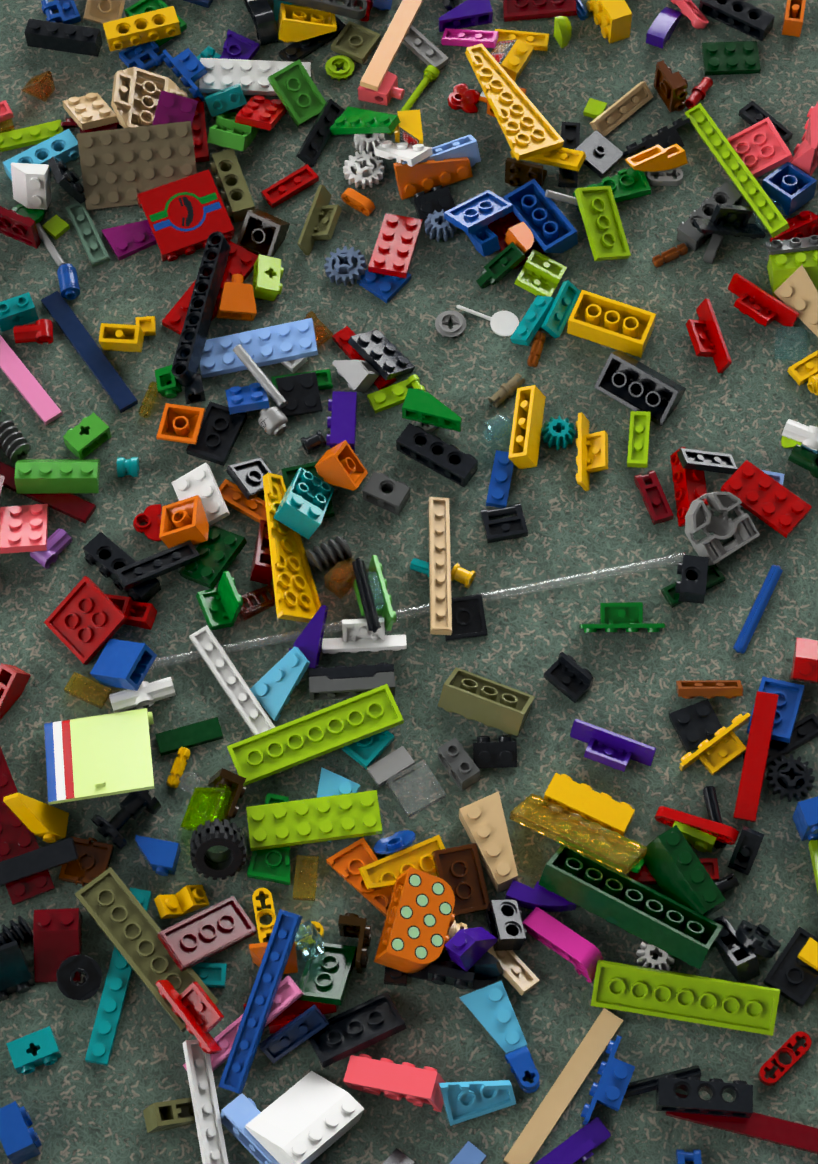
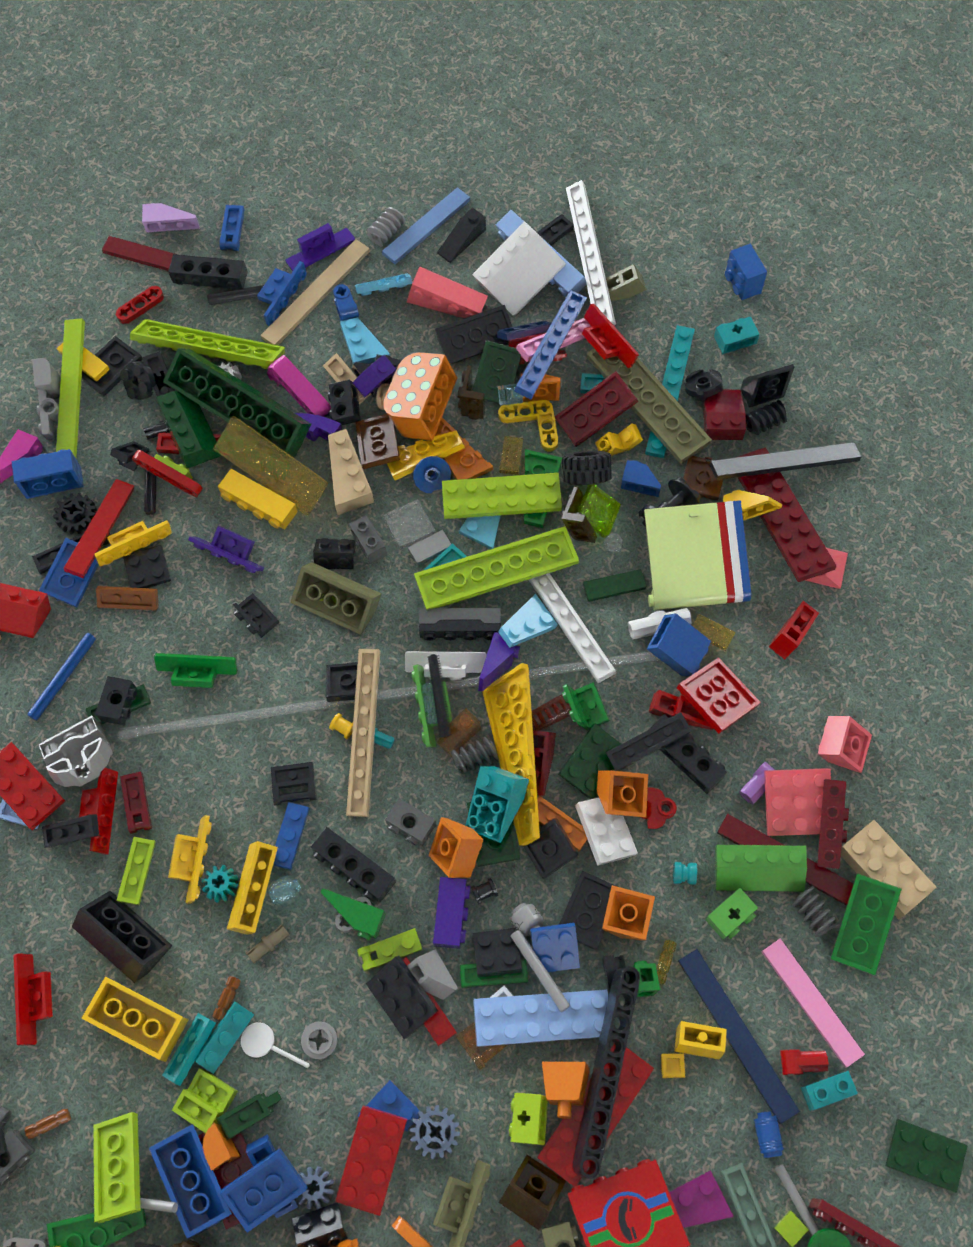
camera: 175 degrees left, 5 degrees up
(178, 767) = (624, 556): yellow axle -> none

